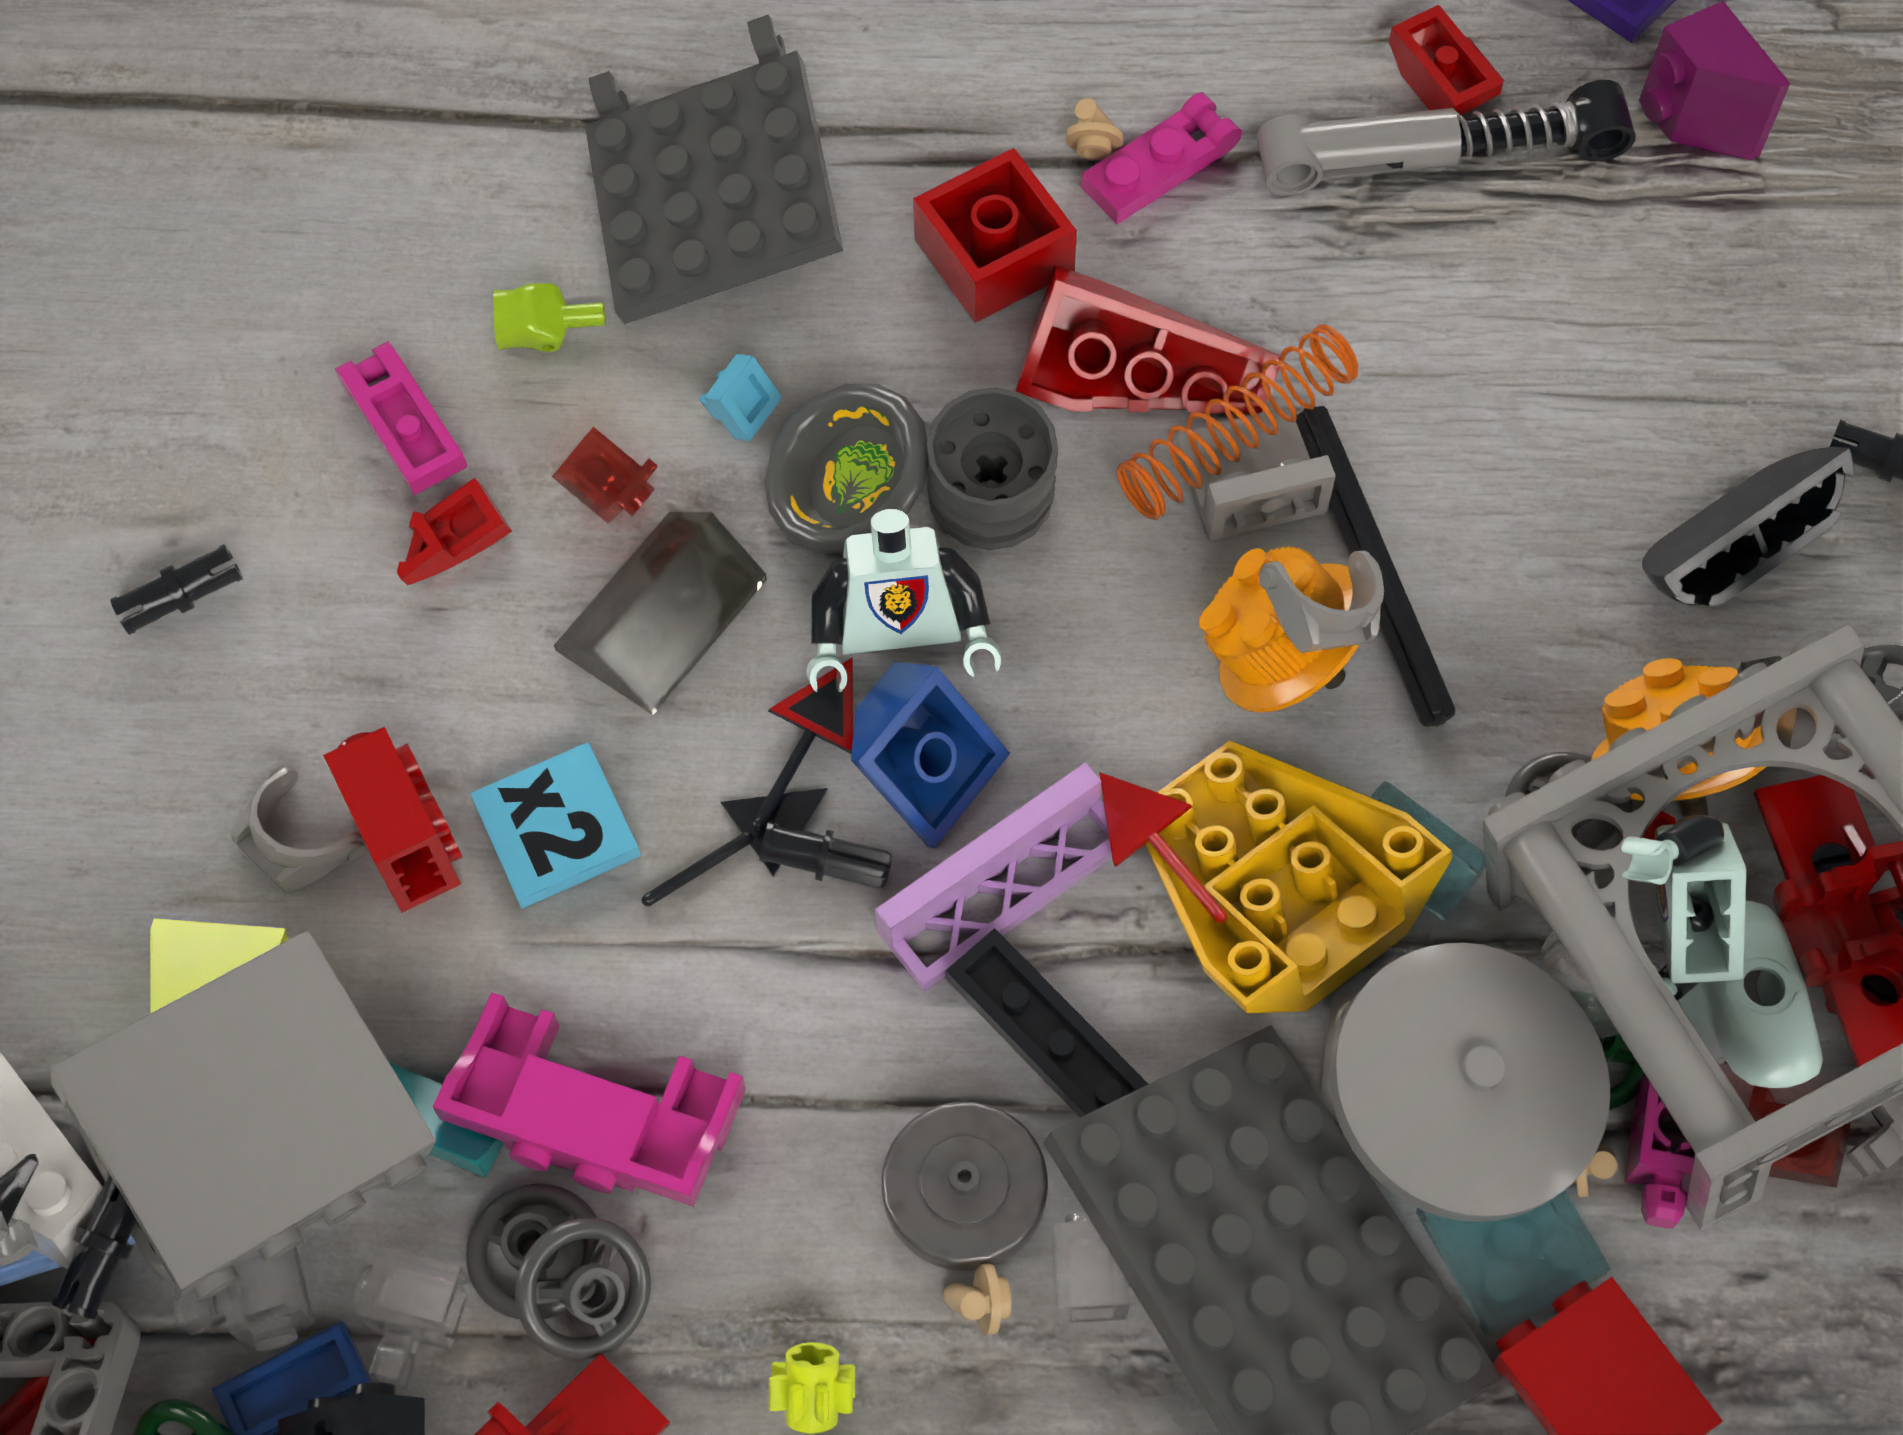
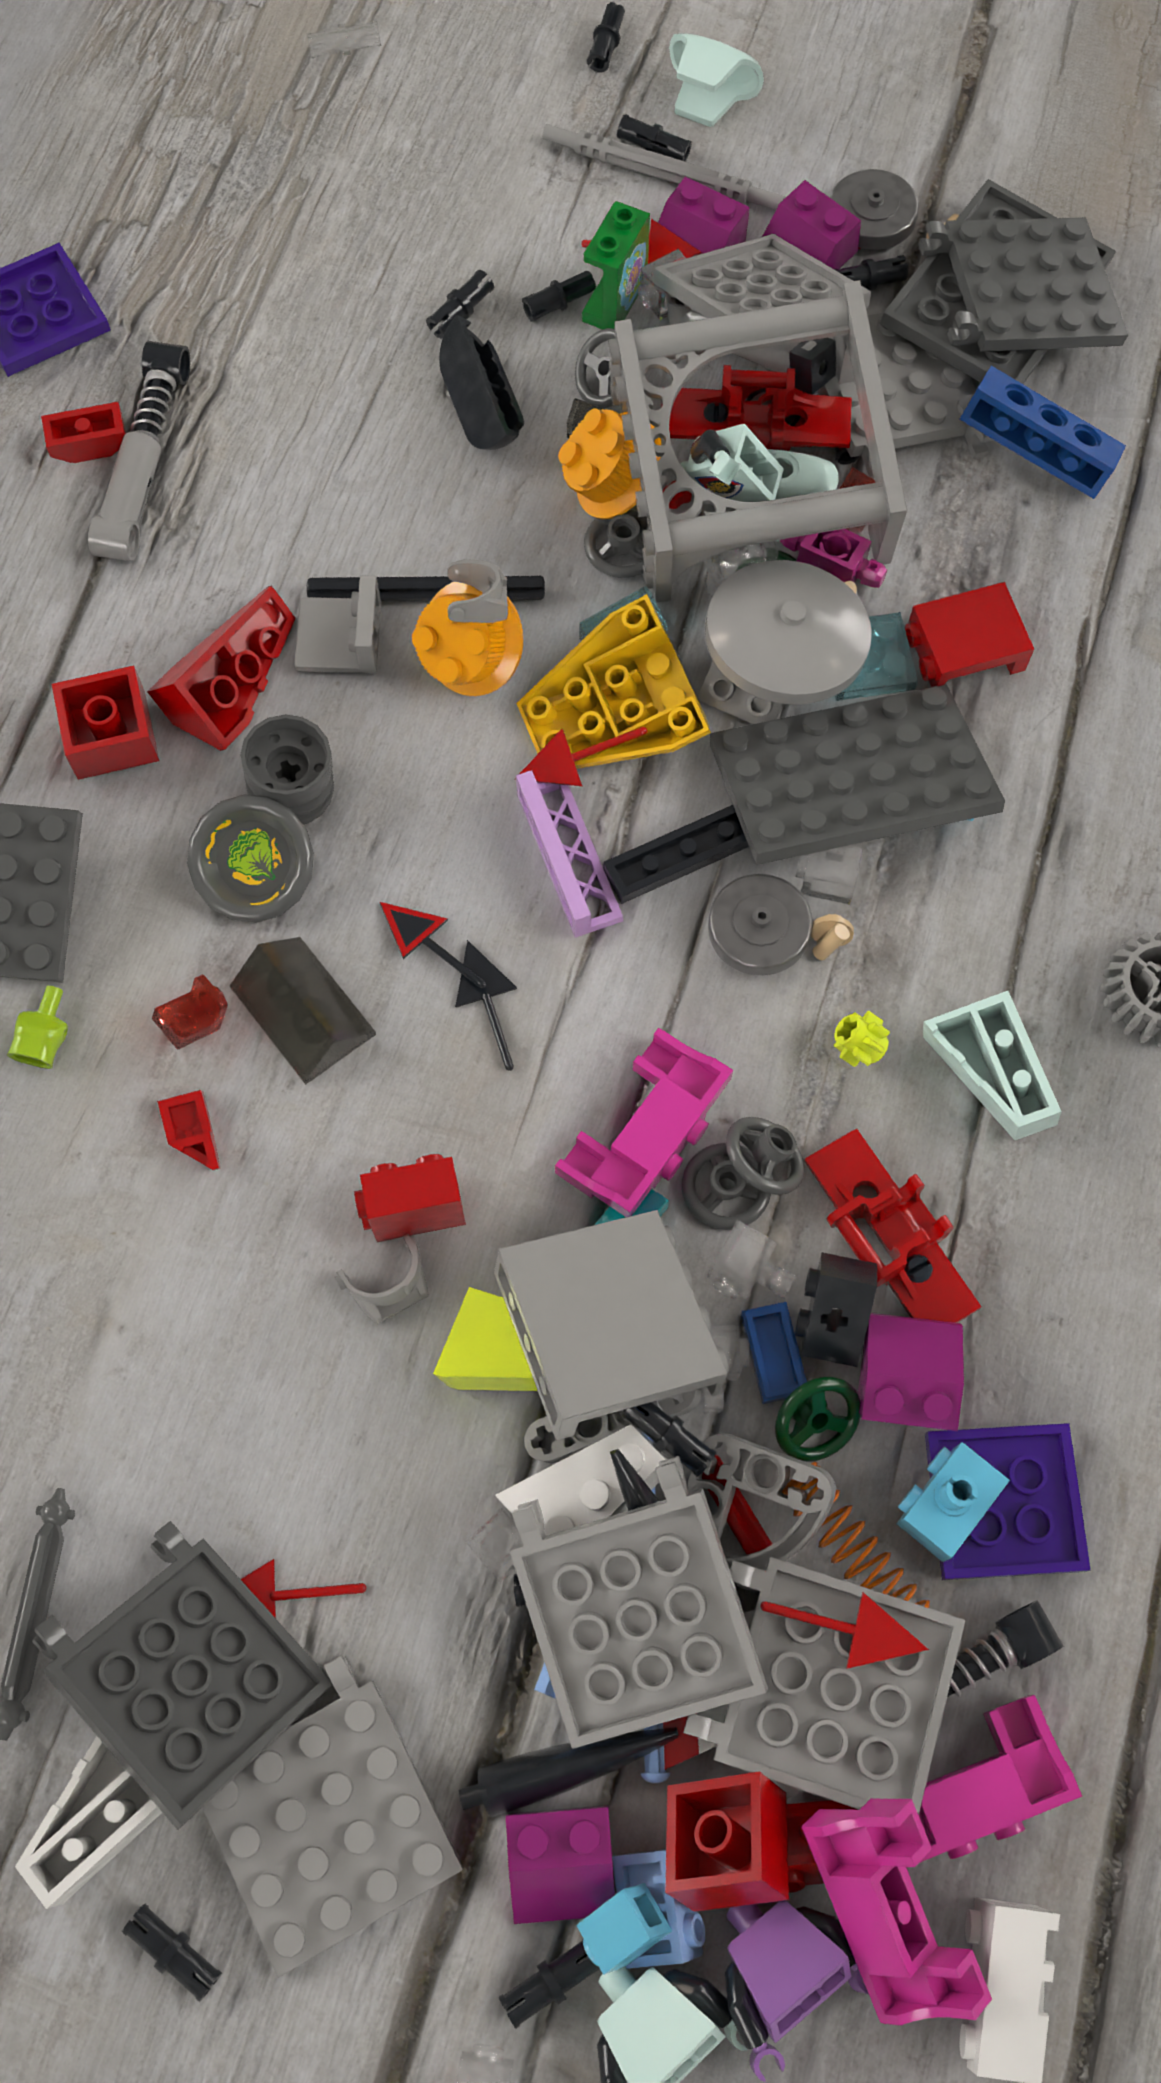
camera: 75 degrees left, 5 degrees up
(176, 589) = (166, 1325): black pin -> none
(402, 418) = (83, 1142): dark pink plate -> none
(555, 825) = (438, 1109): medium azure tile -> none
(742, 397) = (163, 914): medium azure tile -> none
(825, 855) = (518, 950): black axle -> none
(896, 594) = (356, 855): torso -> none
(923, 748) = (463, 868): blue slope -> none
(1094, 134) = (48, 646): tan plate -> none
(1160, 159) = (79, 617): dark pink plate -> none
(1320, 360) = (294, 543): orange piece -> none
(1713, 85) = (176, 289): magenta slope -> none

